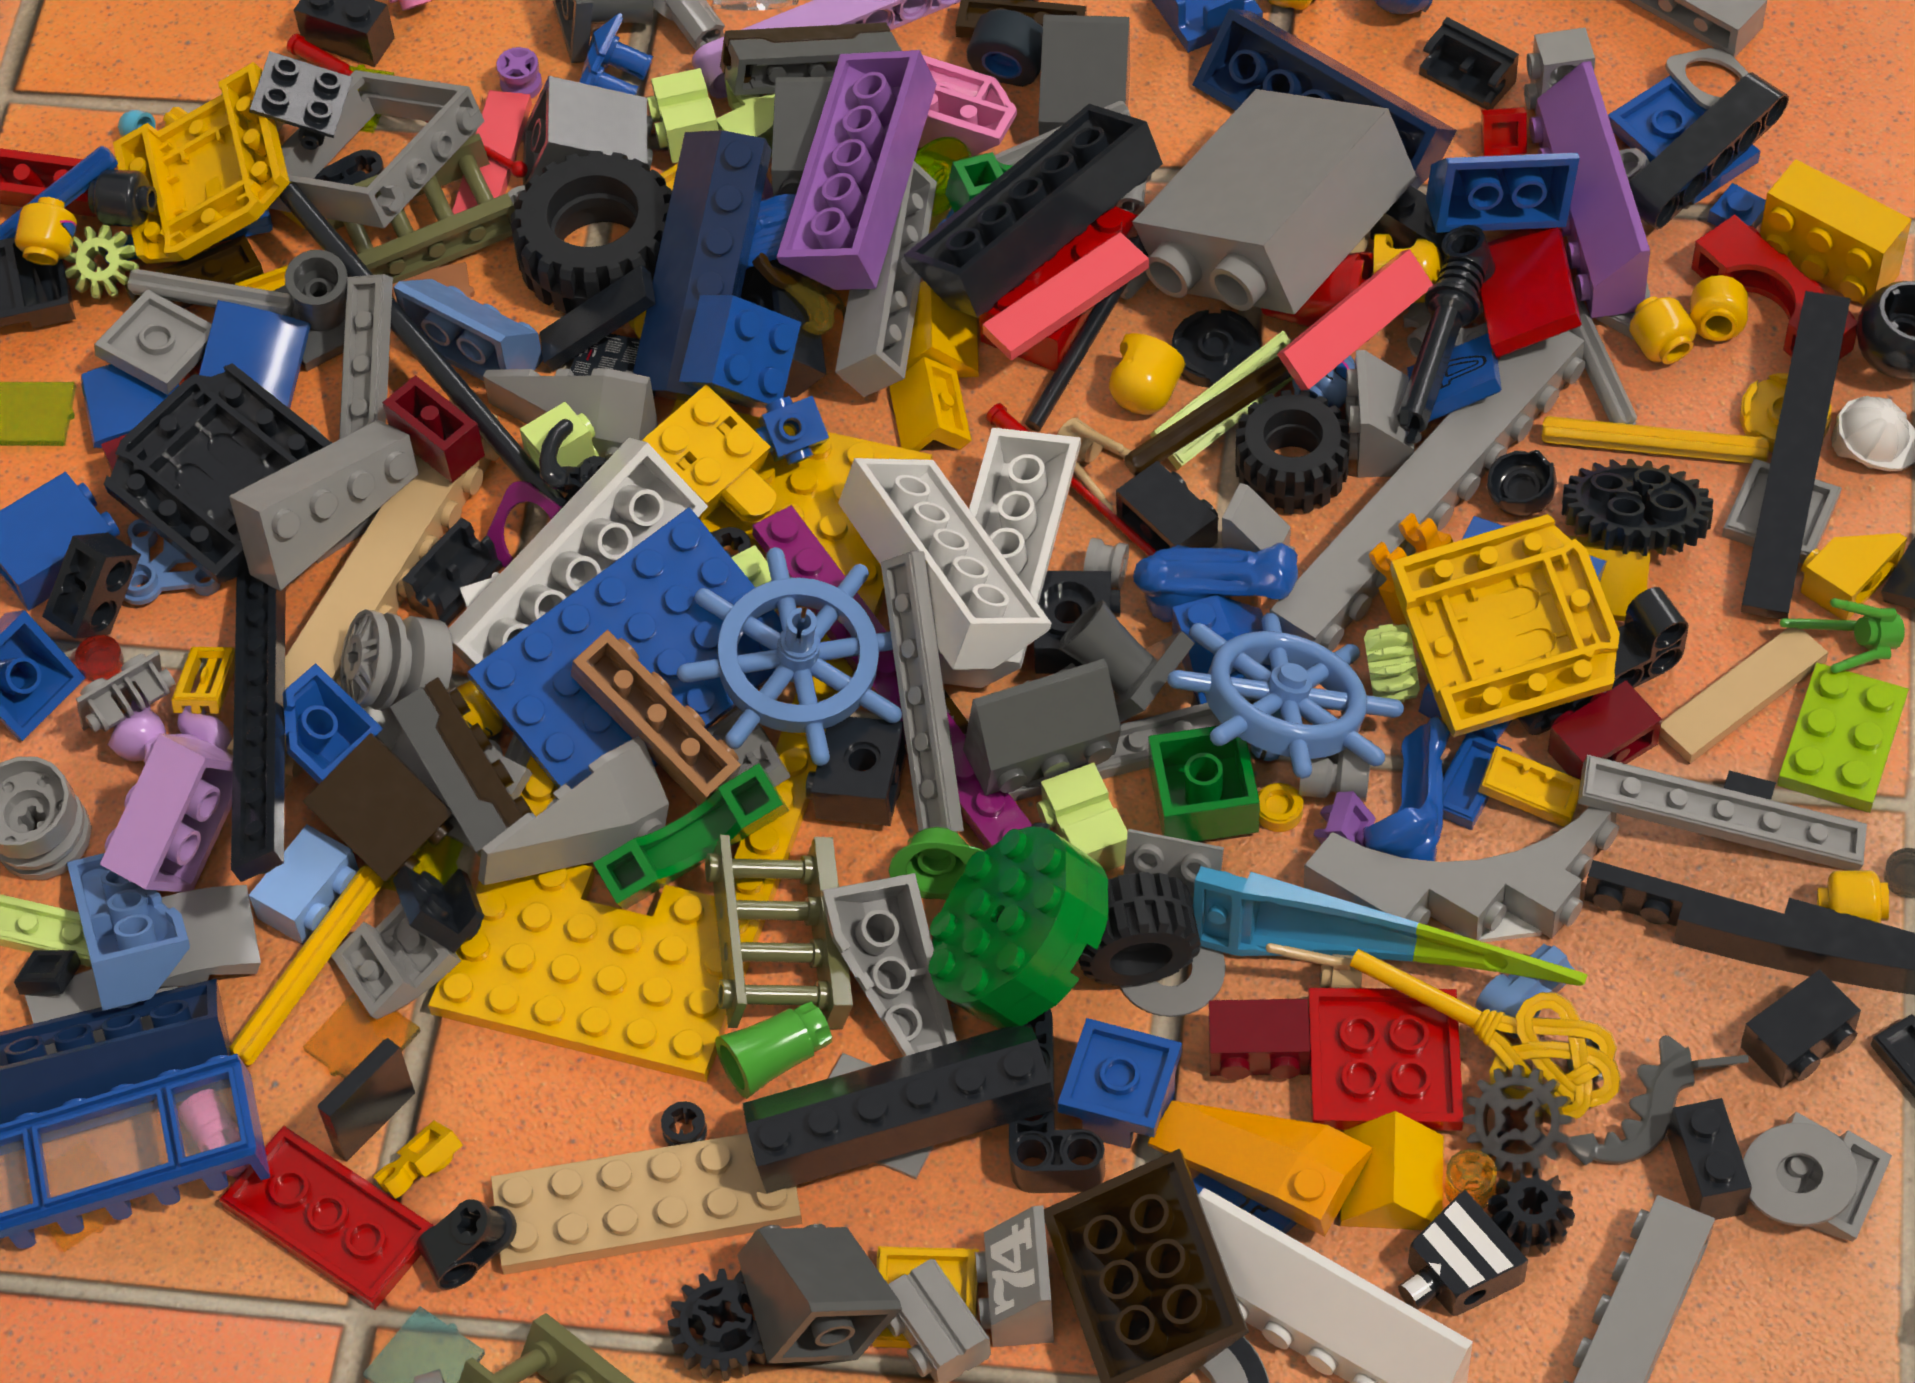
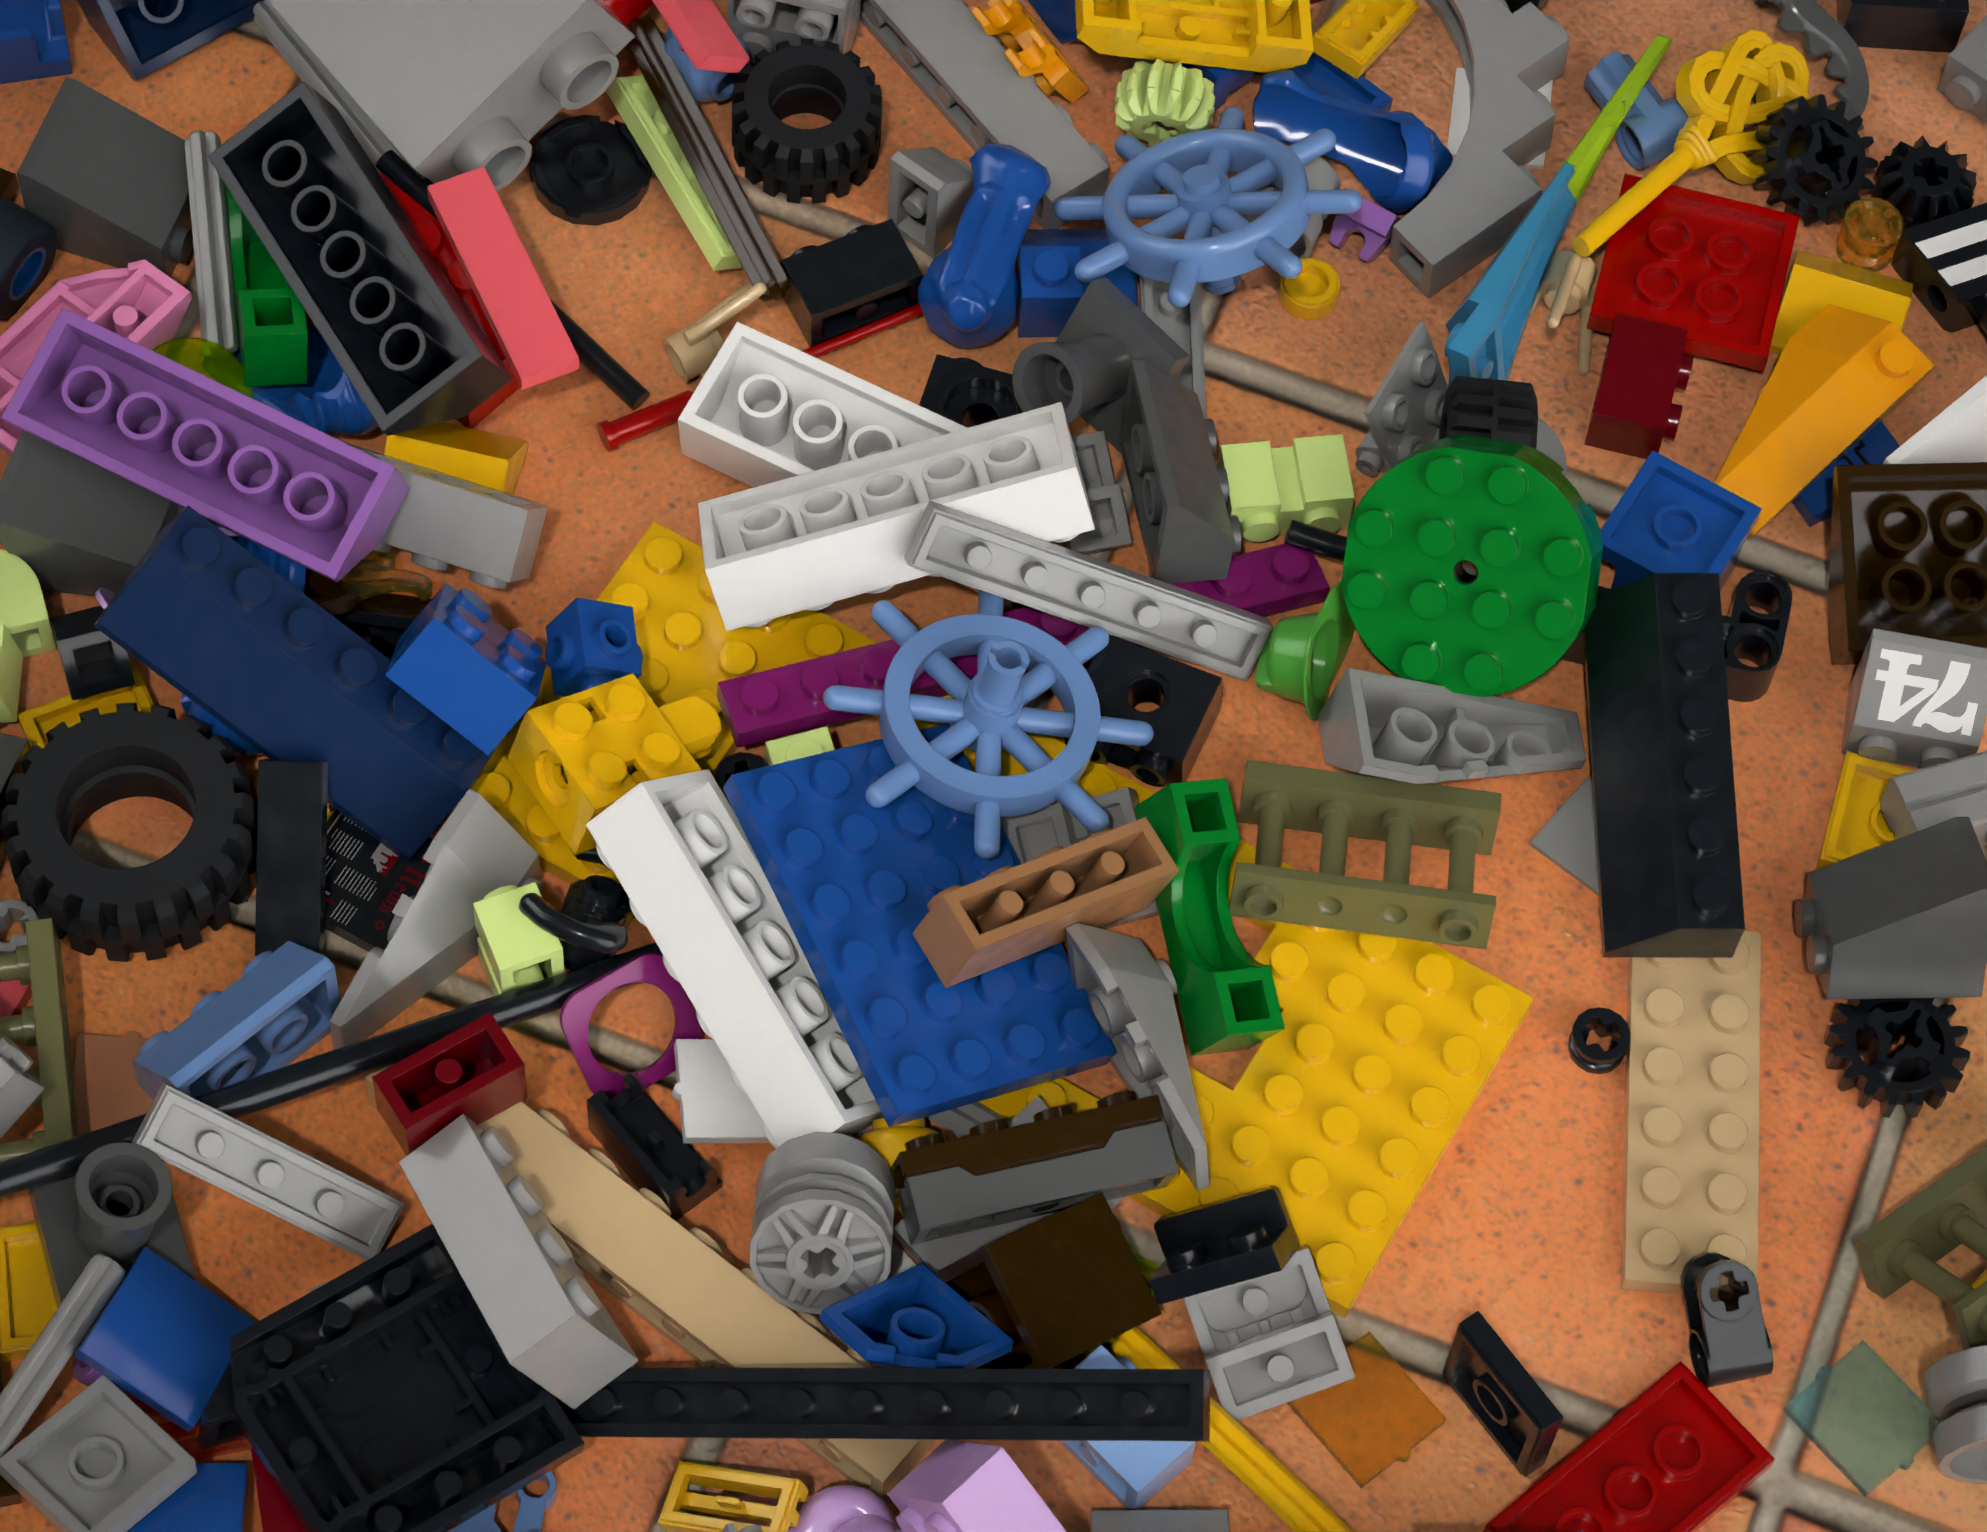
camera: 85 degrees left, 5 degrees up
(422, 1155) = (1574, 1352): yellow plate -> none
(772, 1047) = (1529, 919): bright green plant -> none
(930, 407) = (587, 509): yellow panel -> none
(1108, 558) = (902, 364): light grey wheel -> none
(1146, 374) = (633, 235): yellow helmet -> none
(1201, 786) = (1279, 344): green brick -> none

